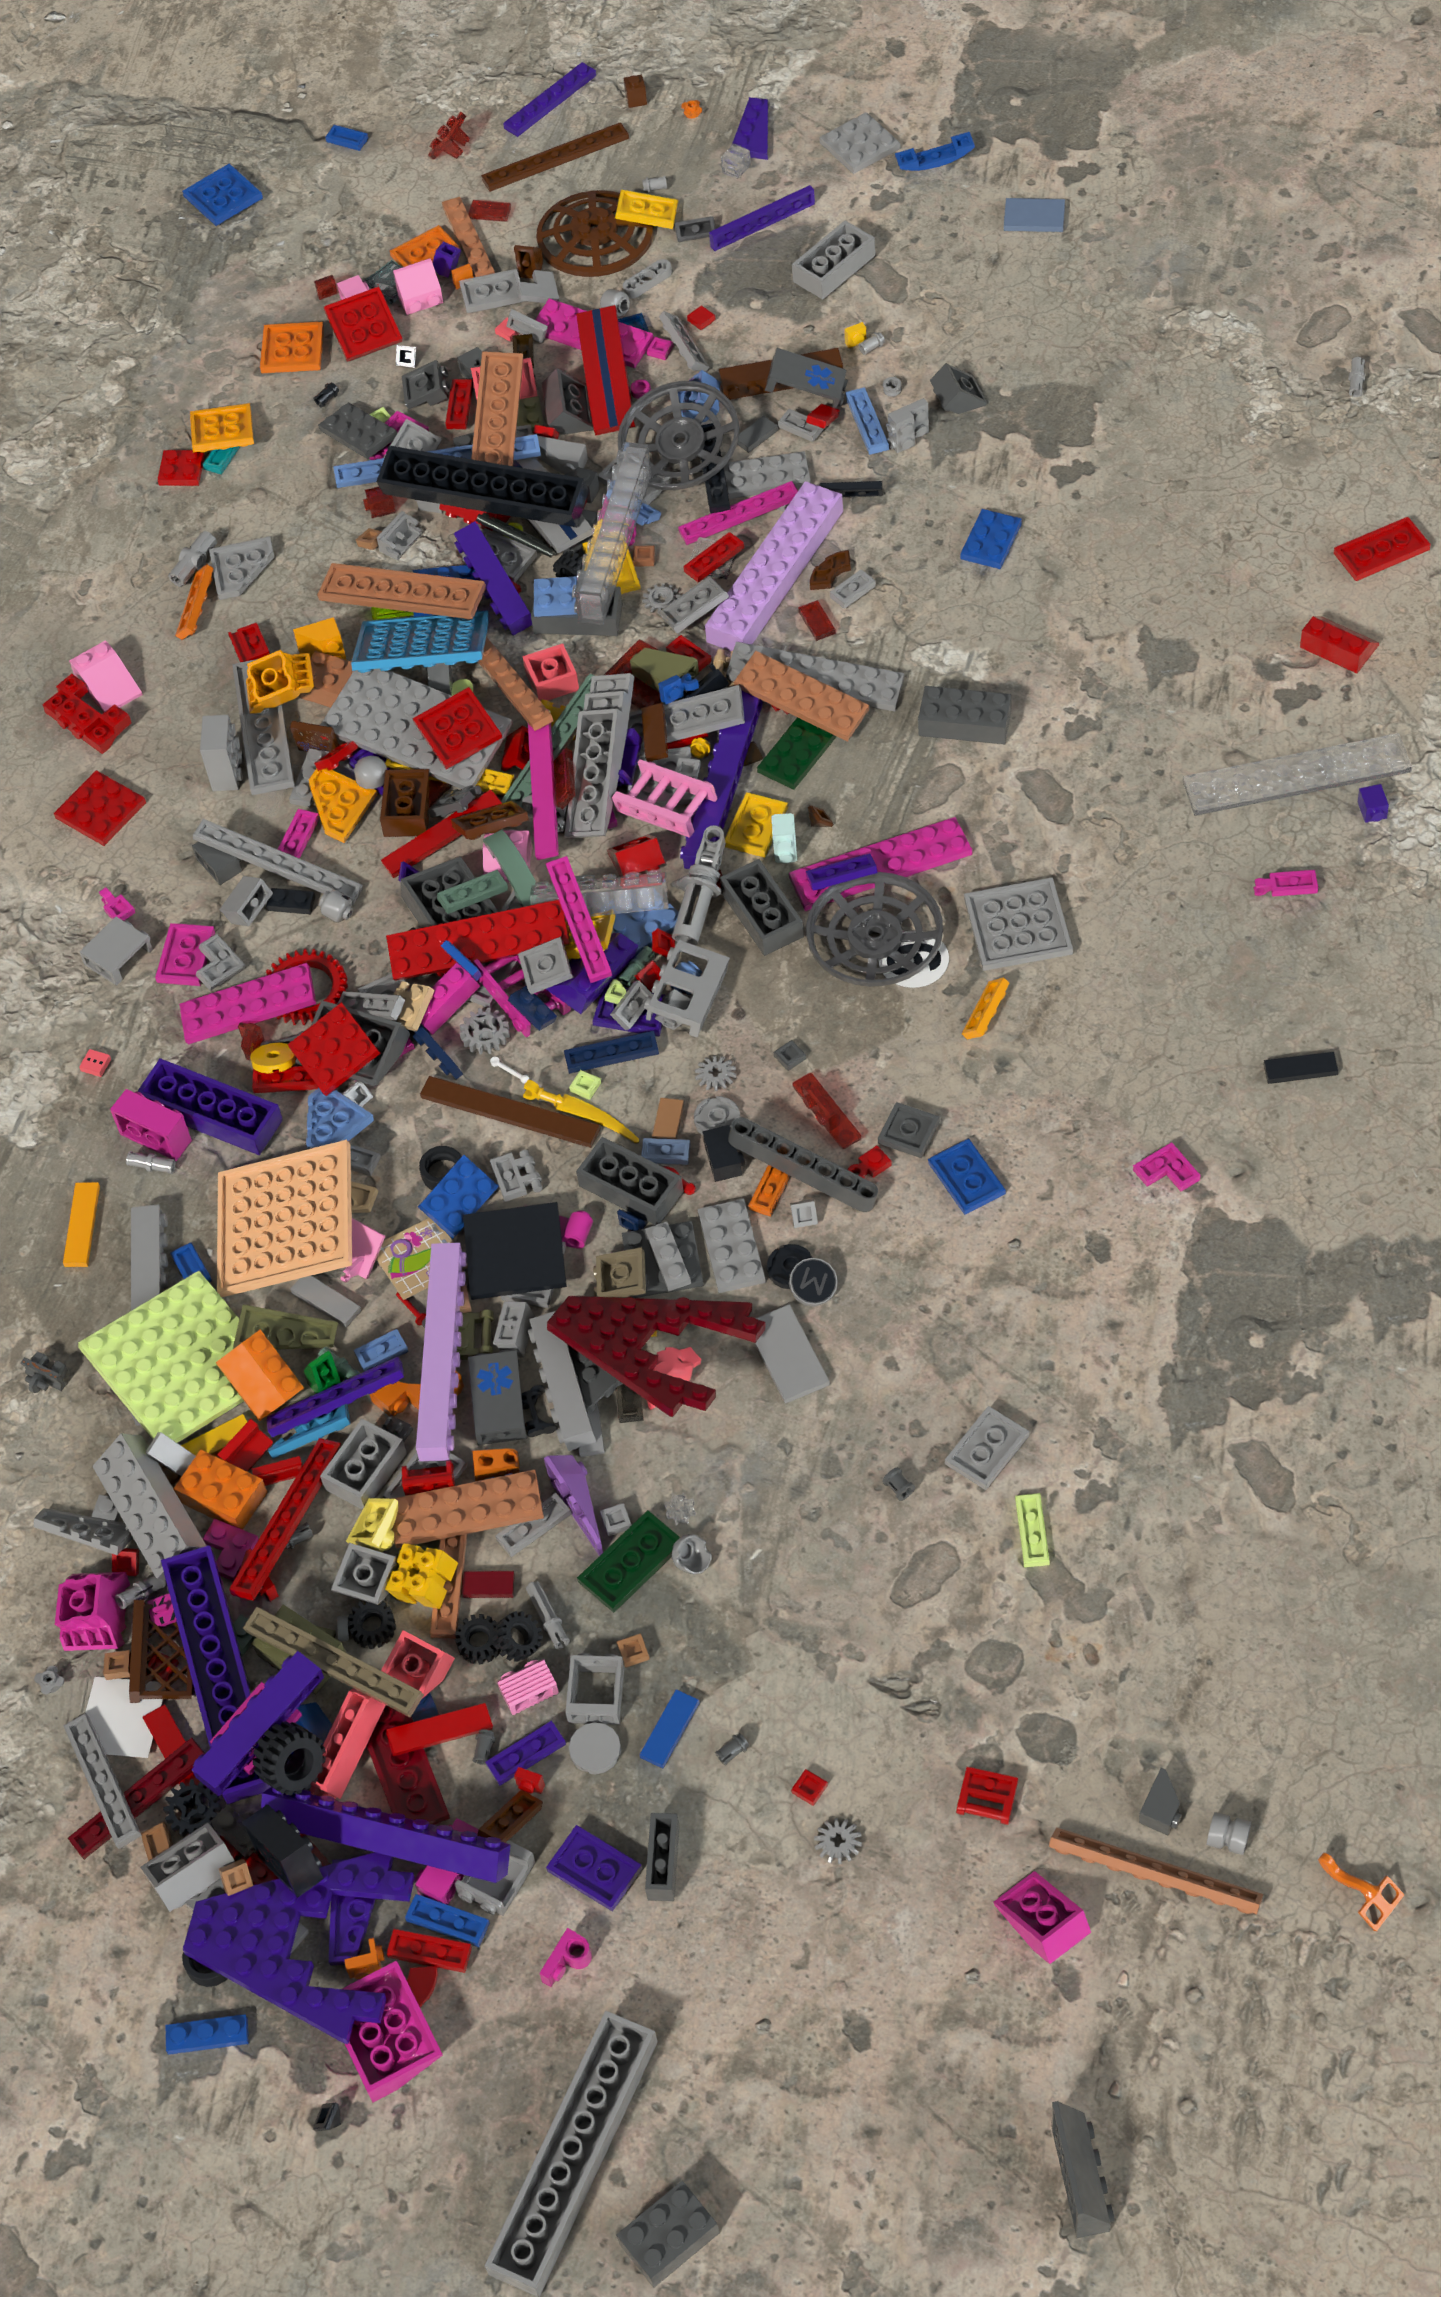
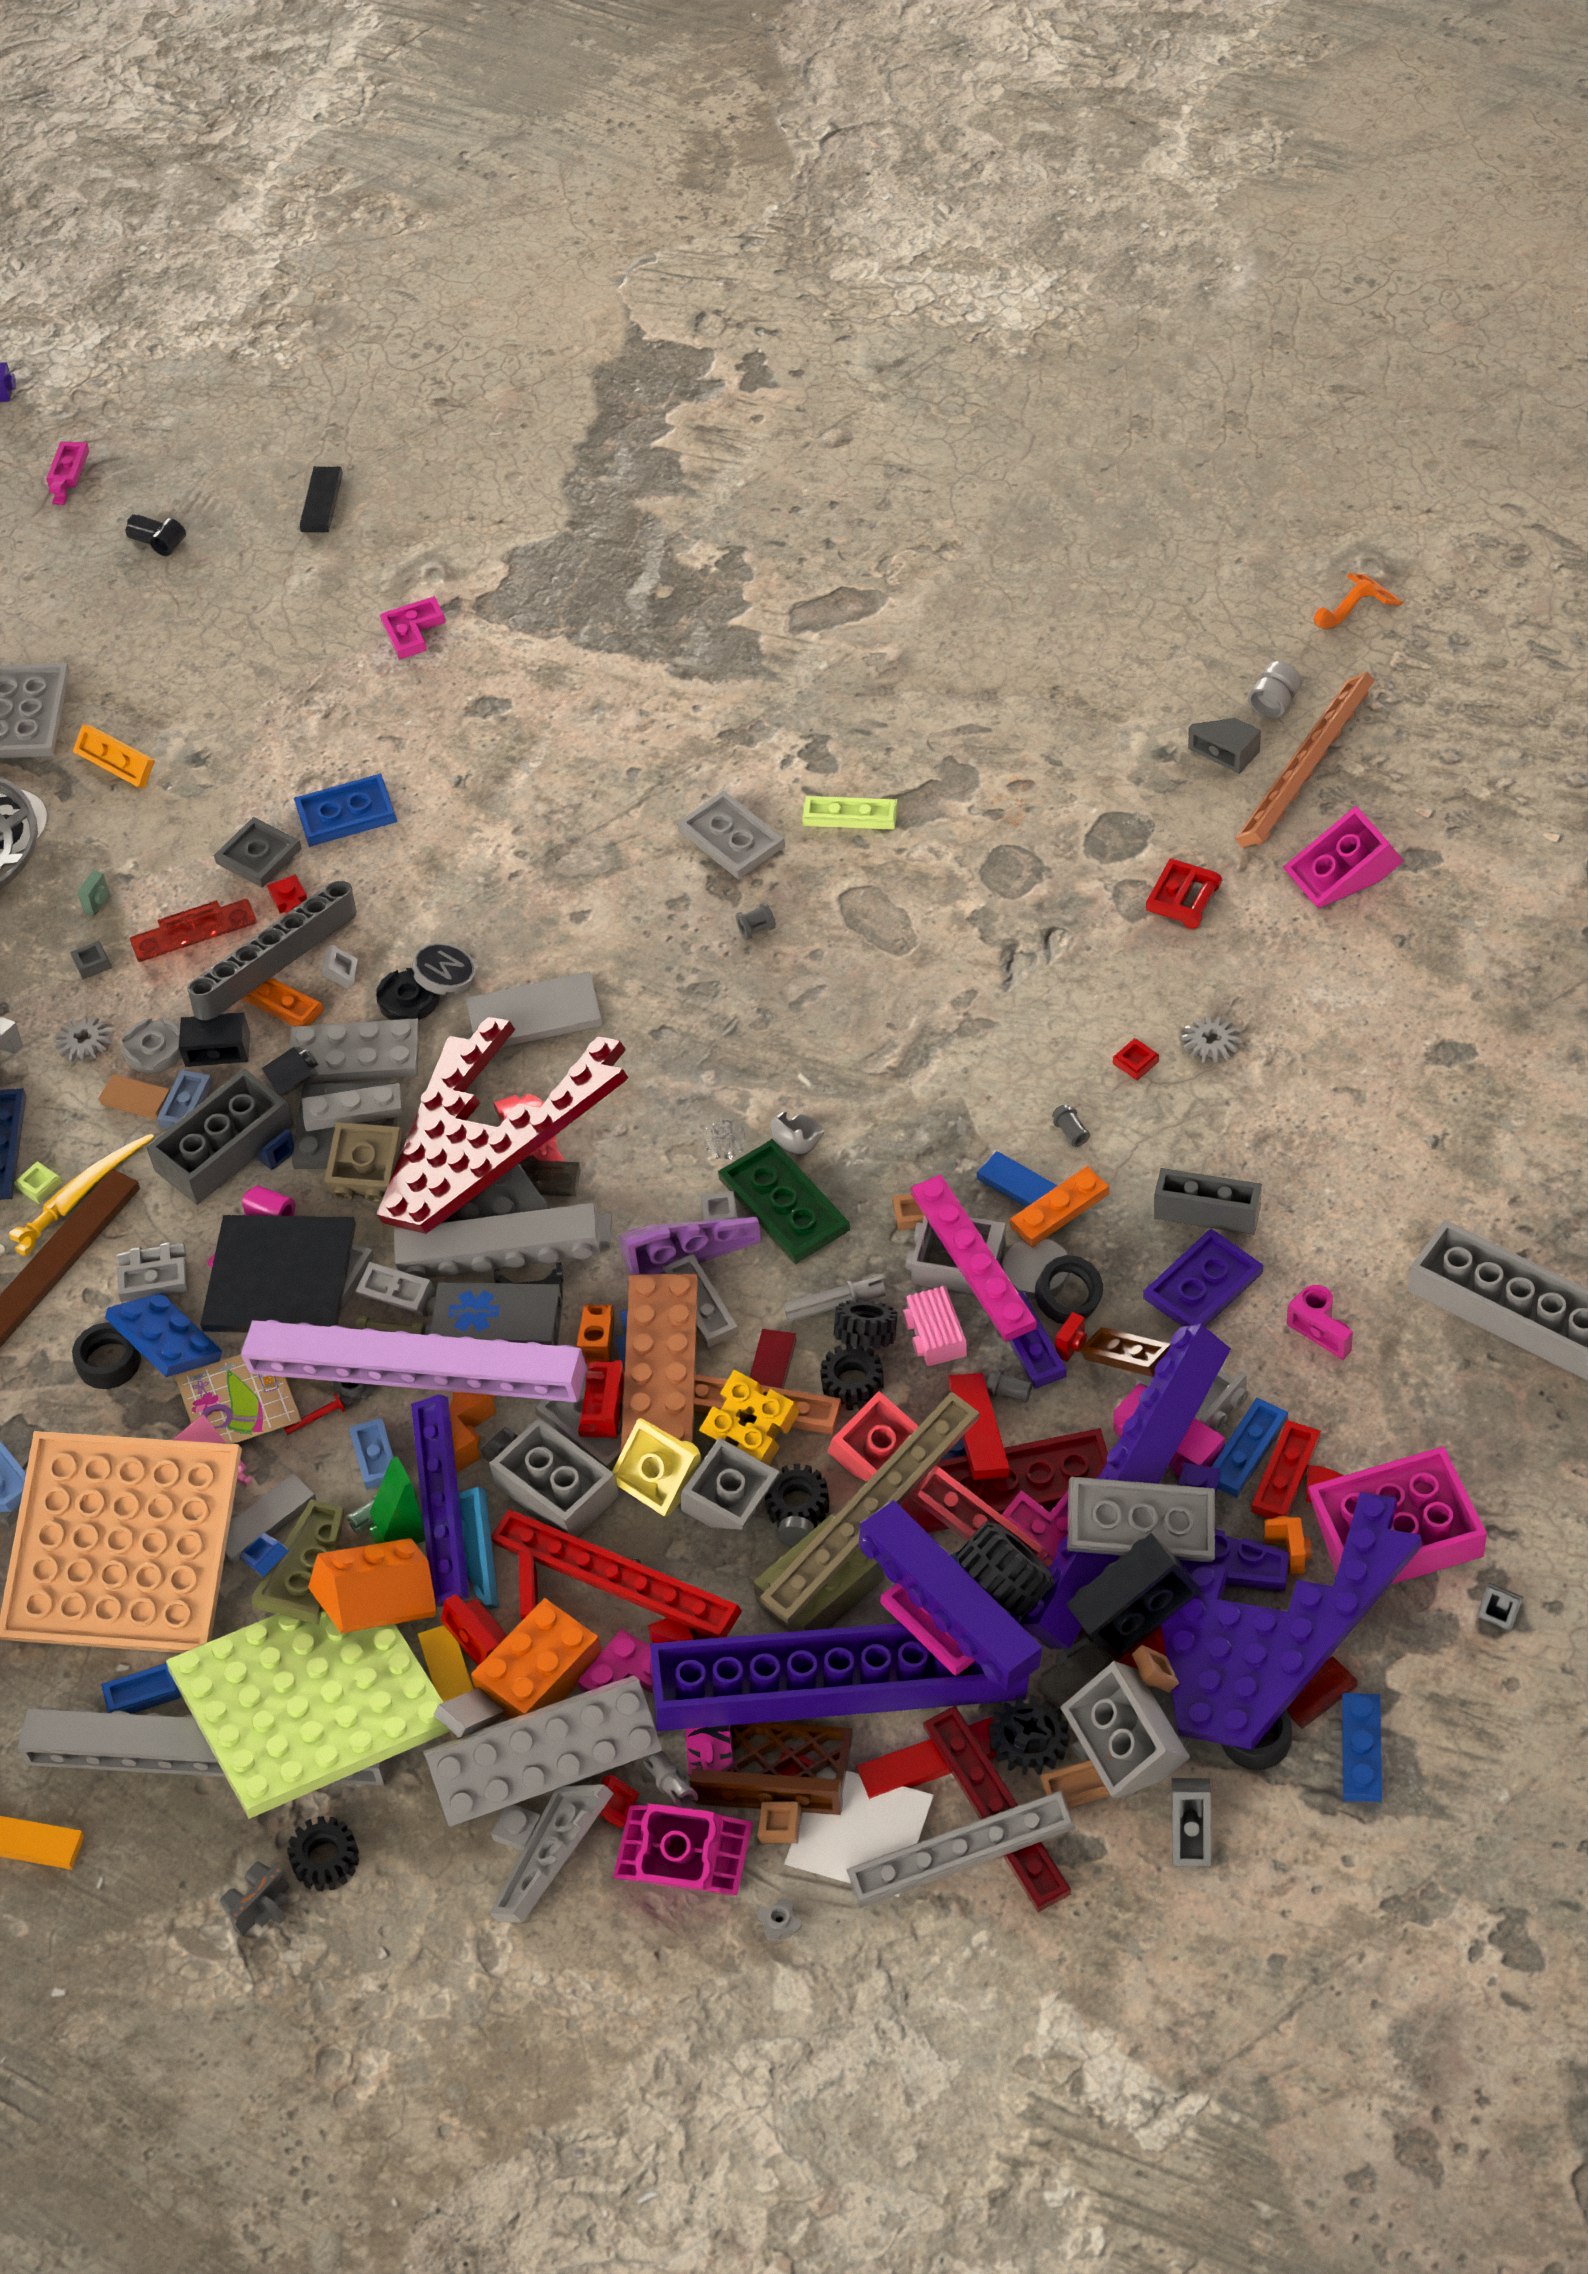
camera: 80 degrees left, 5 degrees down
(75, 1390) = (332, 1870): none -> black tyre
(136, 1924) = (1191, 1822): none -> dark grey slope
(249, 2003) = (1321, 1692): none -> clear red tile
(285, 1304) = (263, 1554): none -> blue tile
(345, 1844) = (1116, 1514): none -> light grey tile
(360, 1783) = (1038, 1523): none -> dark pink plate
(549, 1767) = (1080, 1268): none -> black tyre
(578, 1695) = (973, 1258): none -> dark pink plate
(647, 1752) = (1059, 1206): none -> orange plate
(684, 1205) = (291, 1070): none -> black brick
(847, 1036) = (93, 893): none -> sand green plate
(1228, 970) = (160, 536): none -> black piece

